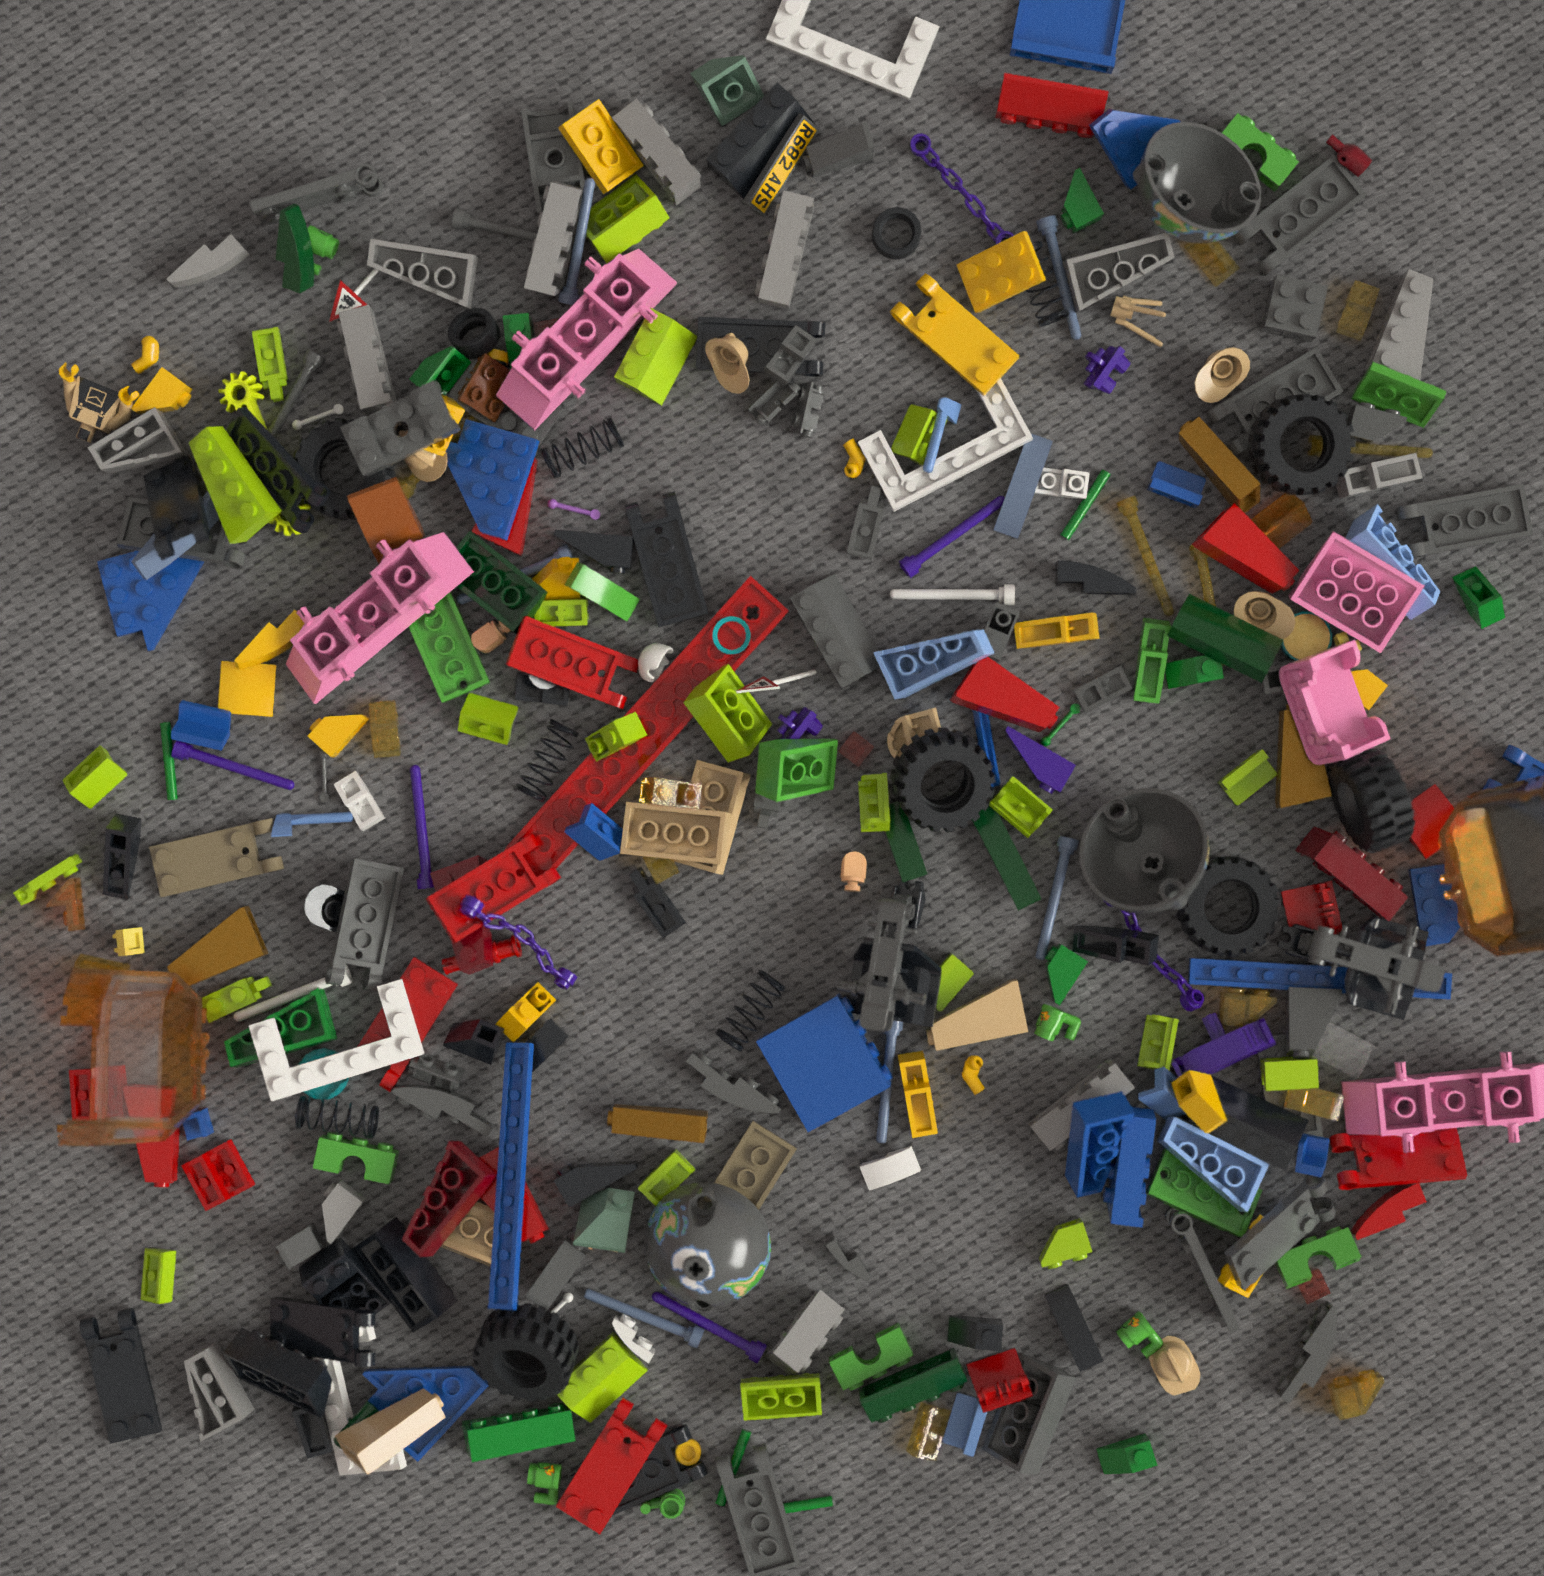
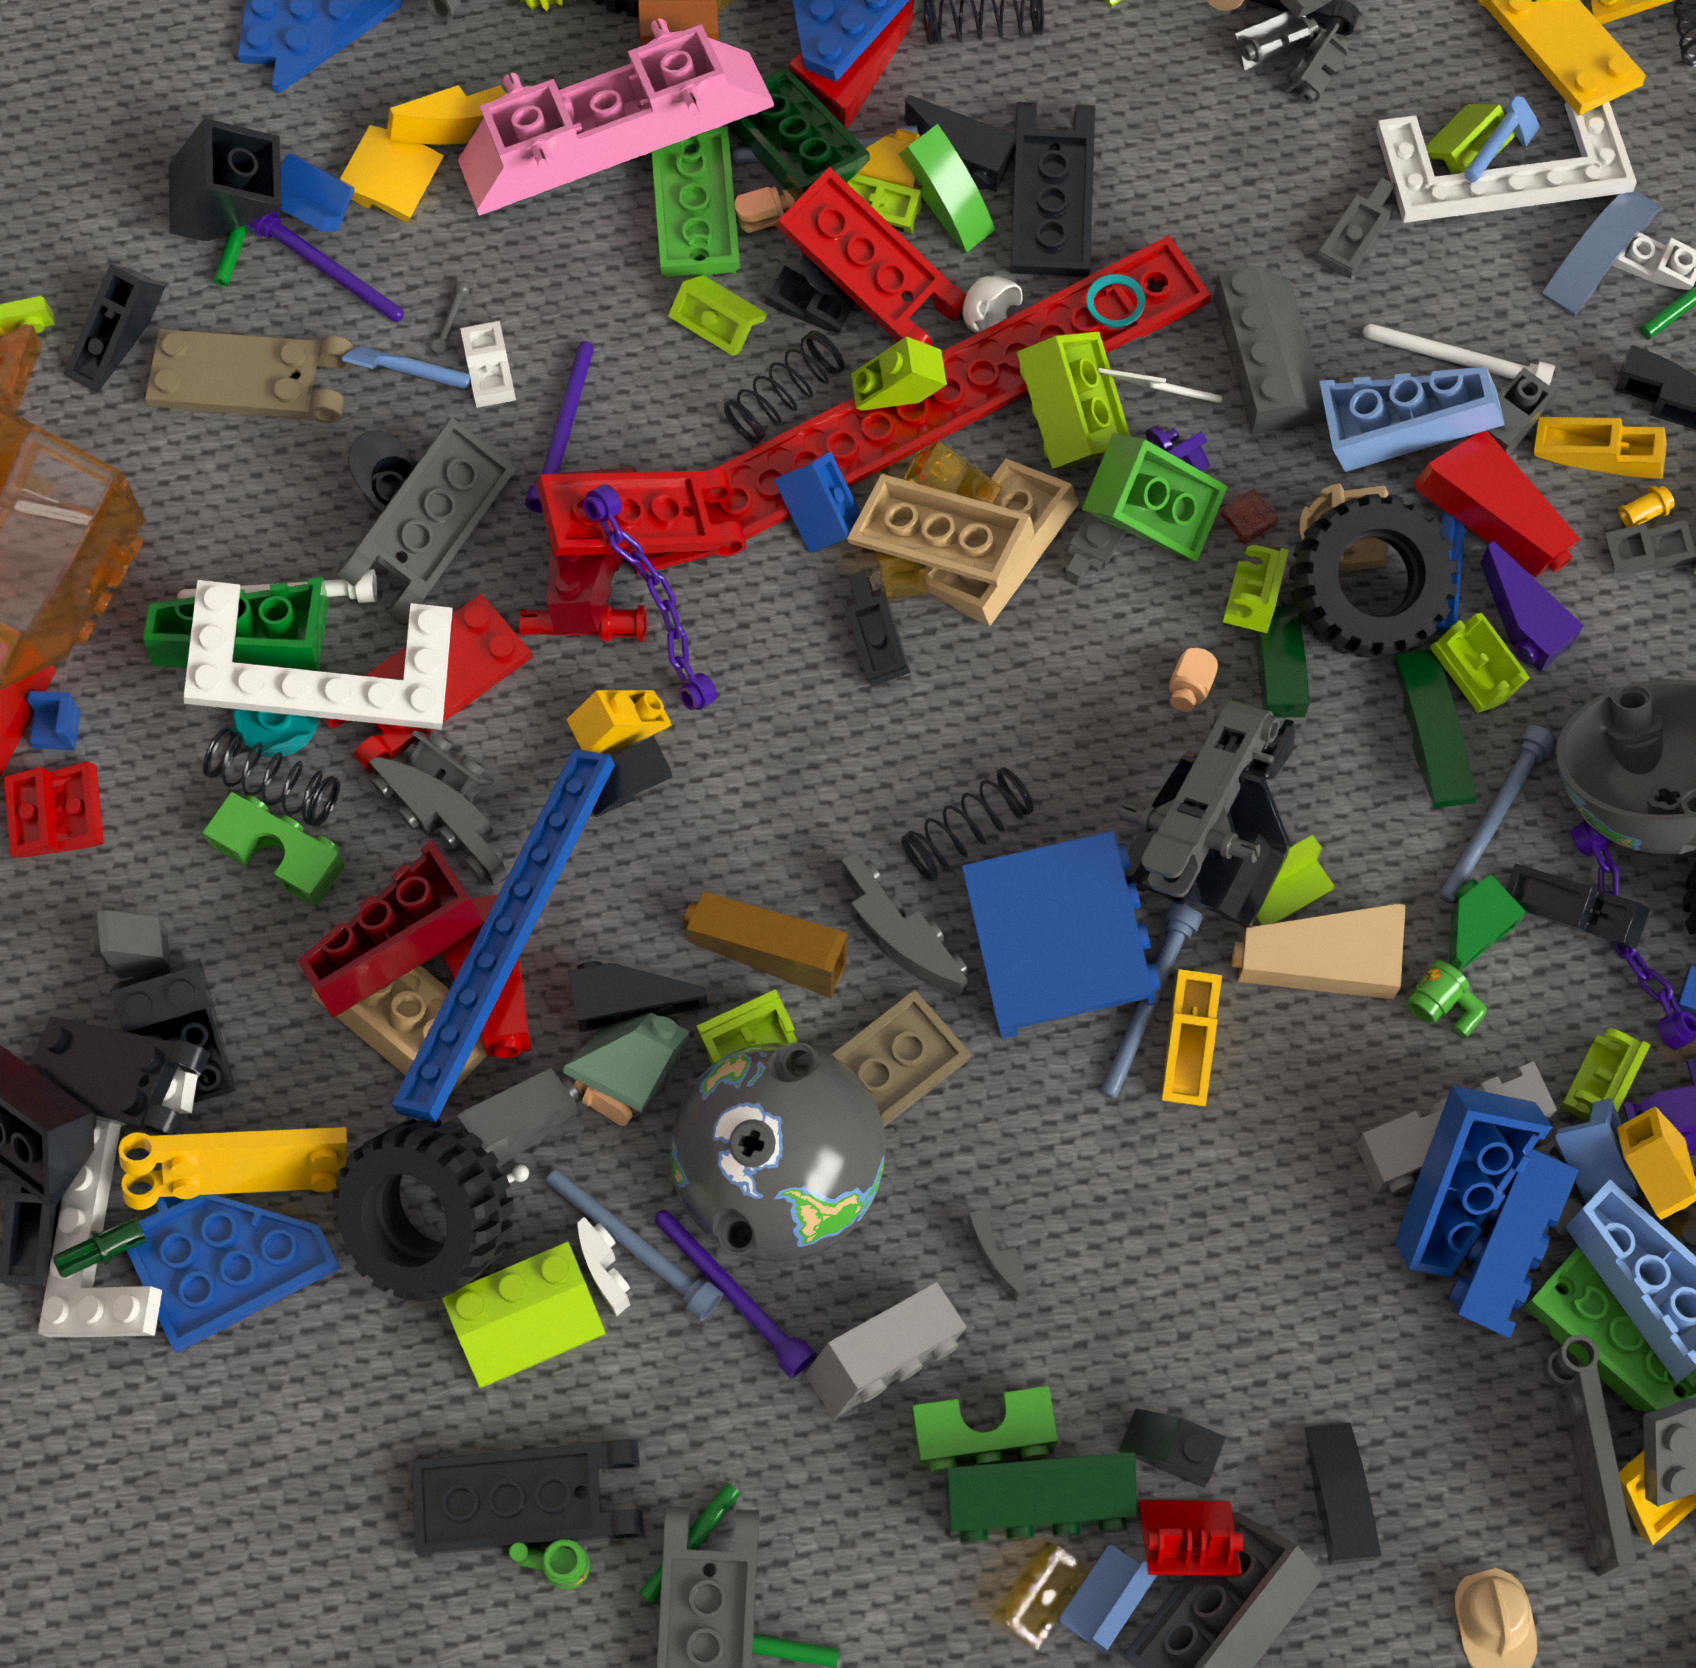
camera: 20 degrees right, 20 degrees down
(94, 777) = (124, 221): lime panel -> none
(129, 941) = (76, 432): light yellow tile -> none
(150, 740) = (223, 180): none -> black slope
(222, 949) = (206, 492): pearl gold slope -> none
(234, 997) = (181, 567): lime hinge -> none
(335, 732) = (496, 260): yellow slope -> none
(339, 1208) = (217, 915): light grey slope -> none
(384, 729) = (563, 281): clear yellow slope -> none
(388, 1369) = (233, 1163): none -> yellow hinge
(390, 1430) = (154, 1261): tan slope -> none
(404, 1277) = (276, 1044): black slope -> none
(475, 1039) = (531, 733): black slope -> none
(518, 1432) = (358, 1350): green wedge -> none
(545, 1476) = (374, 1448): bright green piece -> none
(594, 514) = (969, 107): medium lavender hinge -> none
(608, 1469) = (483, 1464): red hinge -> none
(688, 1452) = (623, 1489): yellow tile -> none
(781, 1396) = (814, 1431): lime slope -> none
(856, 459) = (1368, 146): yellow arm -> none
(891, 1168) = (1111, 1134): white slope -> none
(911, 564) = (1408, 298): dark purple piece -> none
(970, 1073) = (1286, 1033): yellow arm -> none
(1066, 1243) = (1370, 1347): lime slope -> none
(1074, 709) = (1597, 564): green hinge -> none
(1094, 663) = (1656, 502): none -> yellow pin
(1136, 1330) = (1447, 1534): bright green piece -> none

